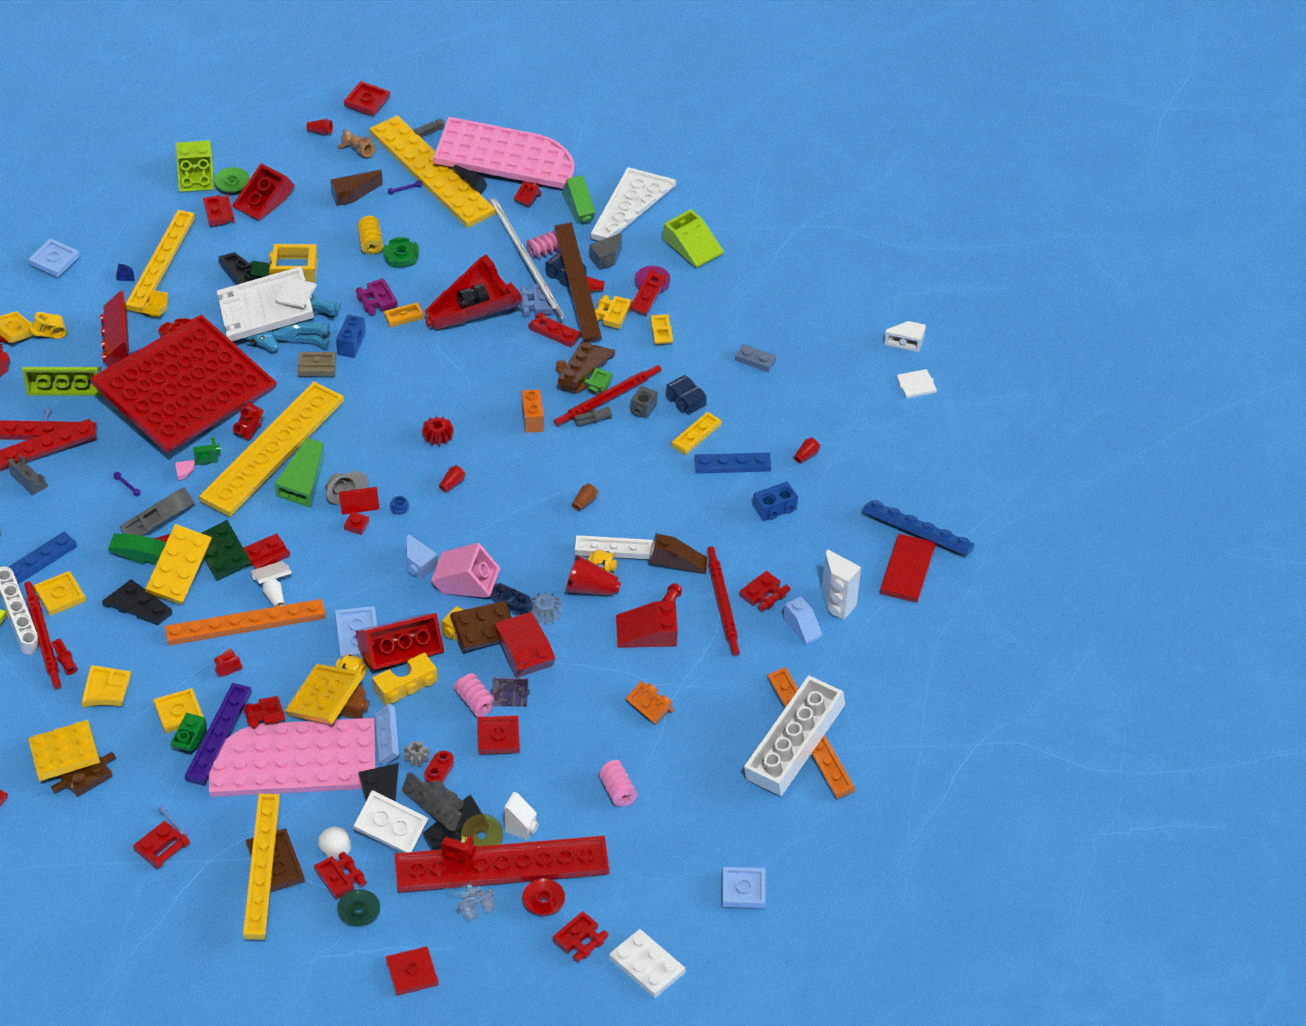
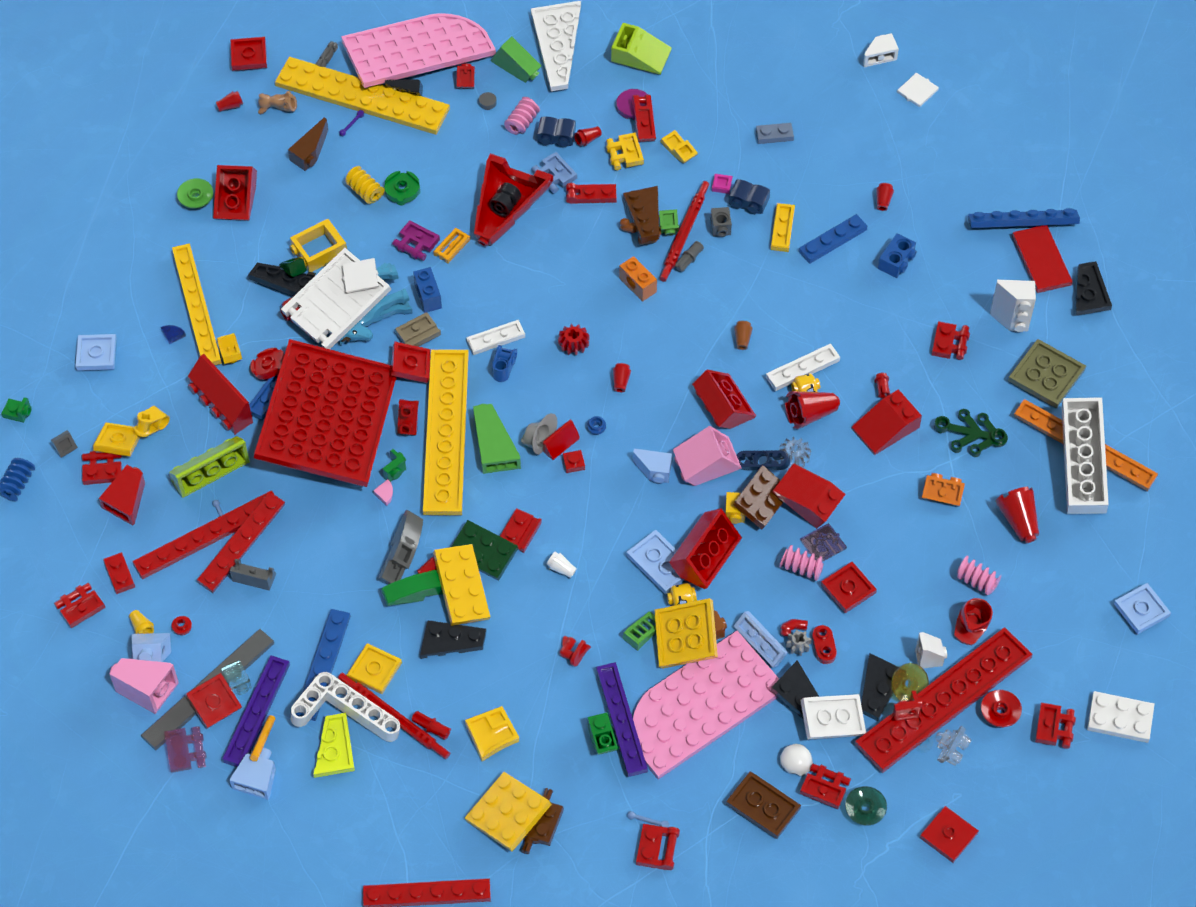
camera: 30 degrees left, 10 degrees up
(117, 476) = (330, 530): dark purple hinge -> none
(173, 708) = (568, 717): yellow tile -> none
(195, 166) = (150, 197): lime slope -> none
(218, 210) = (207, 228): red plate -> none
(245, 622) = (555, 605): orange plate -> none
(261, 867) = (764, 817): yellow plate -> none
(267, 709) = (650, 673): red plate -> none
(270, 572) = (542, 547): white piece -> none
(287, 381) = (410, 362): none -> red plate
(290, 672) = (636, 642): none -> bright green slope
(363, 420) = (503, 363): none -> blue piece
(377, 400) = (497, 336): none -> white tile
(392, 688) = (729, 595): yellow arch -> none
(427, 739) = (793, 624): none -> red arm
(435, 800) = (850, 675): dark grey bracket -> none
(522, 537) = (723, 399): none -> red slope
(526, 257) = (514, 137): white piece -> none
(530, 221) = (487, 101): none -> dark grey tile
(578, 282) = (582, 139): reddish brown tile -> none
(581, 815) = (973, 621): none -> red helmet
(606, 251) = (576, 98): dark grey slope -> none
(672, 373) = (722, 183): none -> dark pink tile
(674, 553) = (859, 347): reddish brown slope -> none
(699, 752) = (1020, 512): none -> red cone
(717, 673) = (973, 432): none -> dark green plant
(723, 601) = (925, 367): red axle -> none
(802, 620) = (1002, 350): light blue slope -> none
(828, 657) = (1047, 373): none -> olive plate
(929, 614) = (1091, 290): none -> black wing

